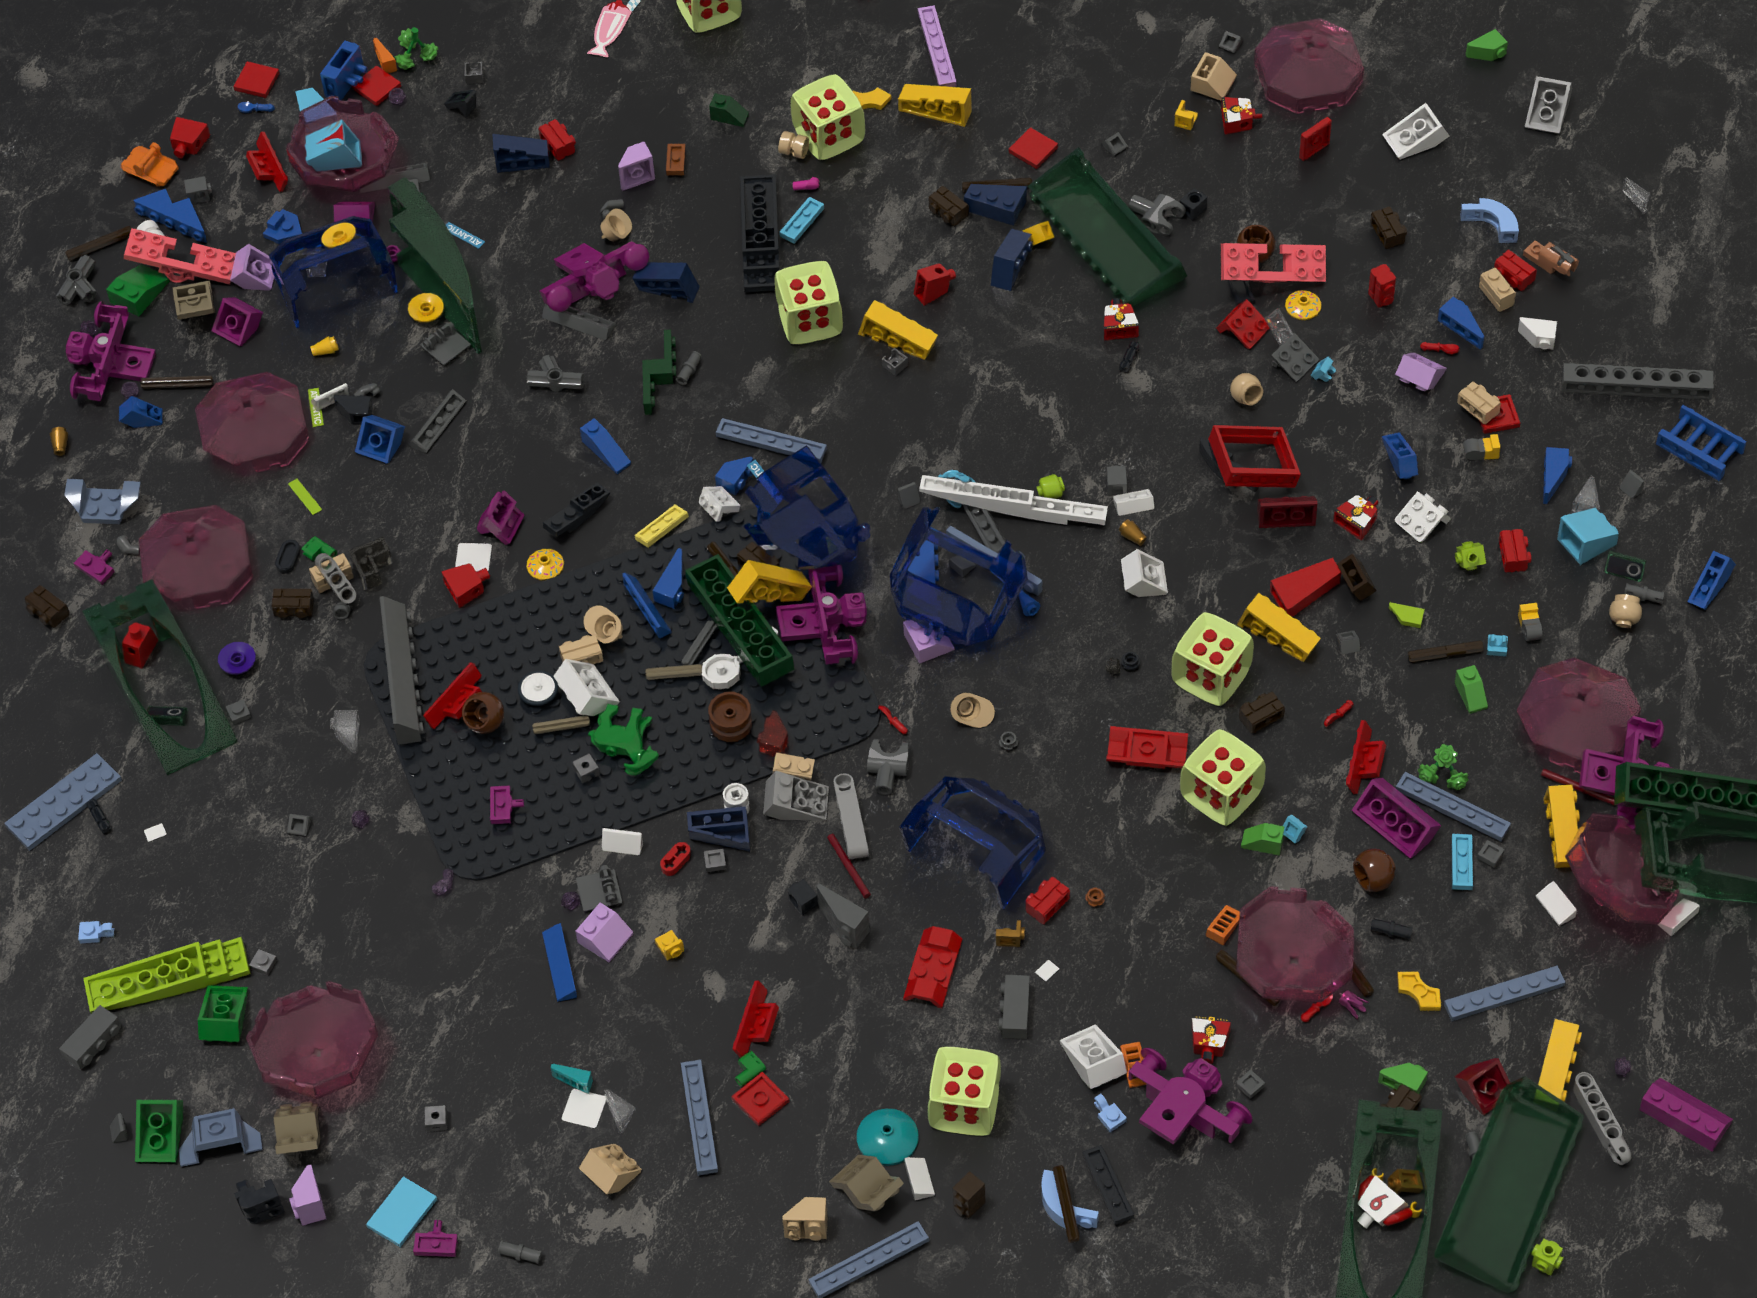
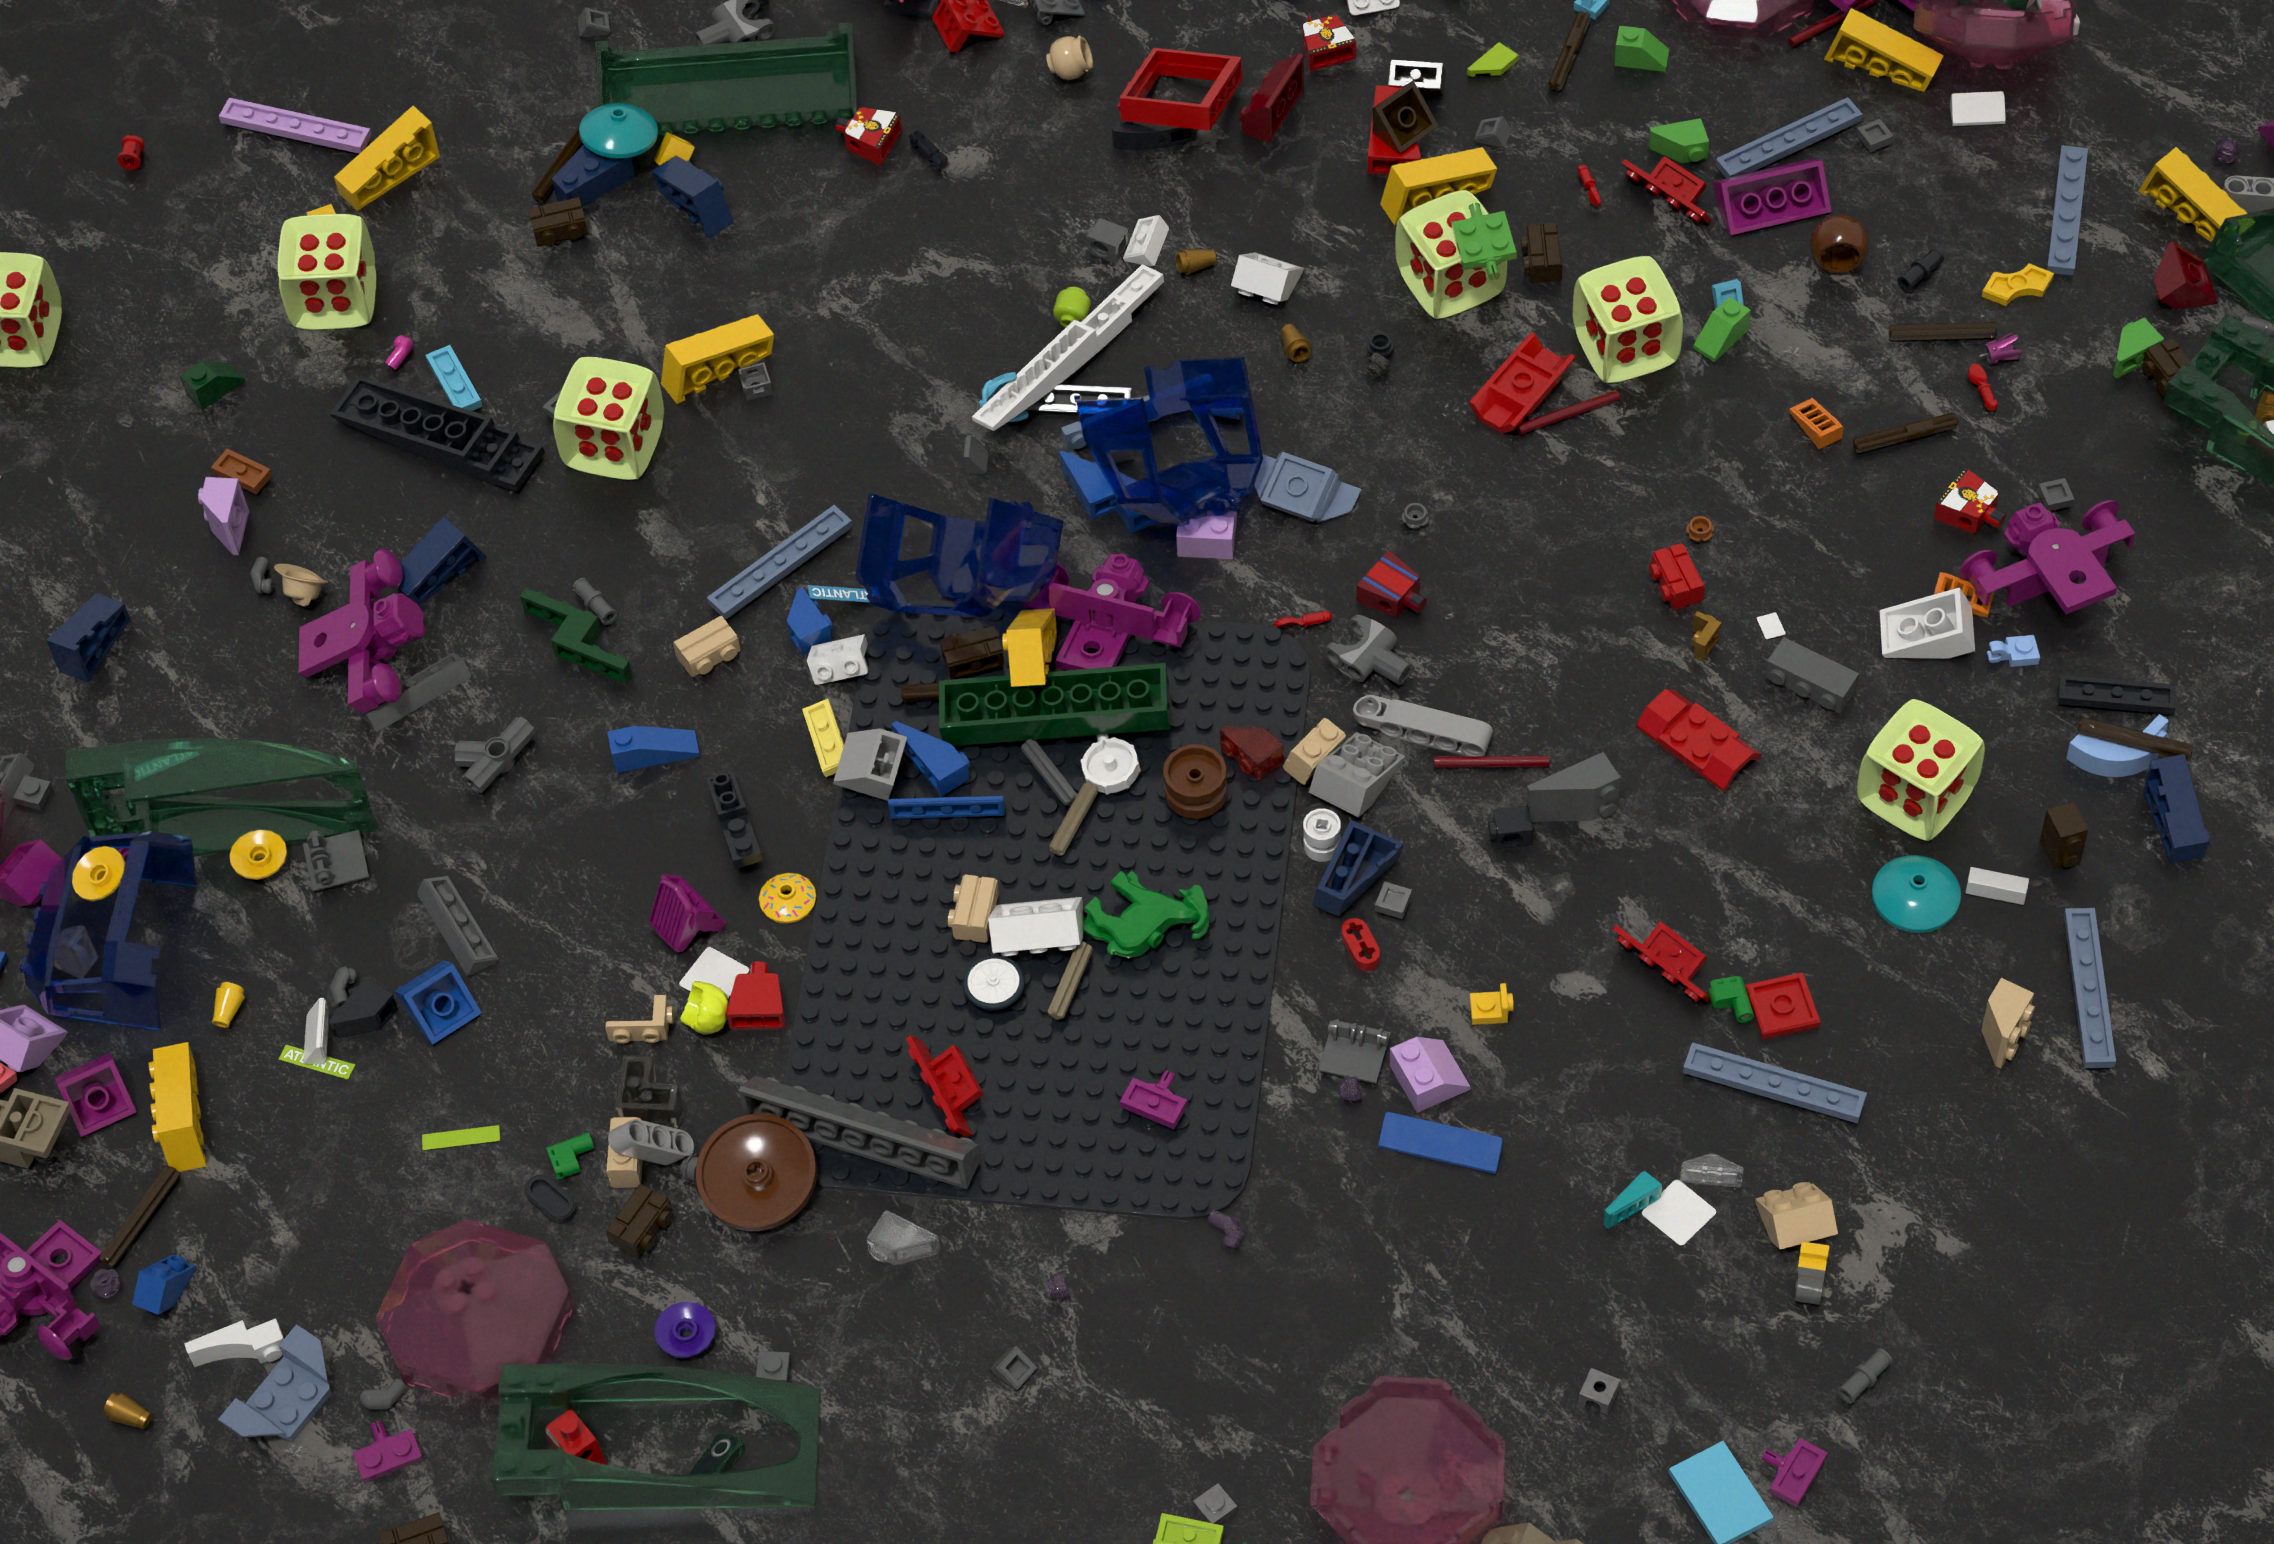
camera: 60 degrees left, 0 degrees up
(123, 463) = (237, 1342): none -> white slope
(248, 356) = (176, 1107): none -> yellow wedge
(264, 433) = (294, 1169): clear pink windscreen -> none
(349, 638) = (756, 1172): none -> reddish brown dish
(422, 546) = (645, 1031): none -> tan bracket
(442, 561) = (705, 1008): none -> neon yellow hair
(474, 712) = (983, 1047): reddish brown wheel -> none
(558, 140) = (86, 581): red brick -> none
(573, 1194) = (1811, 1272): none -> leg
(583, 772) = (1164, 986): flat silver piece -> none
(603, 624) = (951, 858): tan piece -> none
(622, 841) = (1297, 992): white slope -> none
(647, 553) = (870, 762): none -> light grey slope
(688, 436) = (707, 647): none -> tan brick
(793, 144) = (330, 333): tan wheel -> none
(866, 1183) = (1983, 936): dark tan bracket -> none
(932, 282) = (666, 278): red torso -> none
(944, 752) = (1390, 587): none -> dark red torso
(972, 710) = (1348, 530): tan piece -> none
(987, 673) = (1304, 488): none -> sand blue piece
(1001, 862) = (1513, 623): clear blue windscreen -> none
(1025, 195) = (618, 130): none -> teal dish
(1031, 1253) = (2175, 809): none -> dark blue wedge
(1033, 148) = (534, 102): red tile -> none
(1101, 615) = (1295, 344): none -> pearl gold cone
(1144, 785) = (1568, 412): none -> dark red bar
(1210, 663) = (1484, 240): none -> bright green plate
(1287, 926) = (1942, 345): clear pink windscreen -> none
(1306, 582) = (1403, 118): none -> dark brown slope
(1409, 747) = (1680, 141): none -> bright green slope
(1444, 757) = (1740, 102): bright green plant -> none
(1462, 862) = (1869, 165): medium azure plate -> none

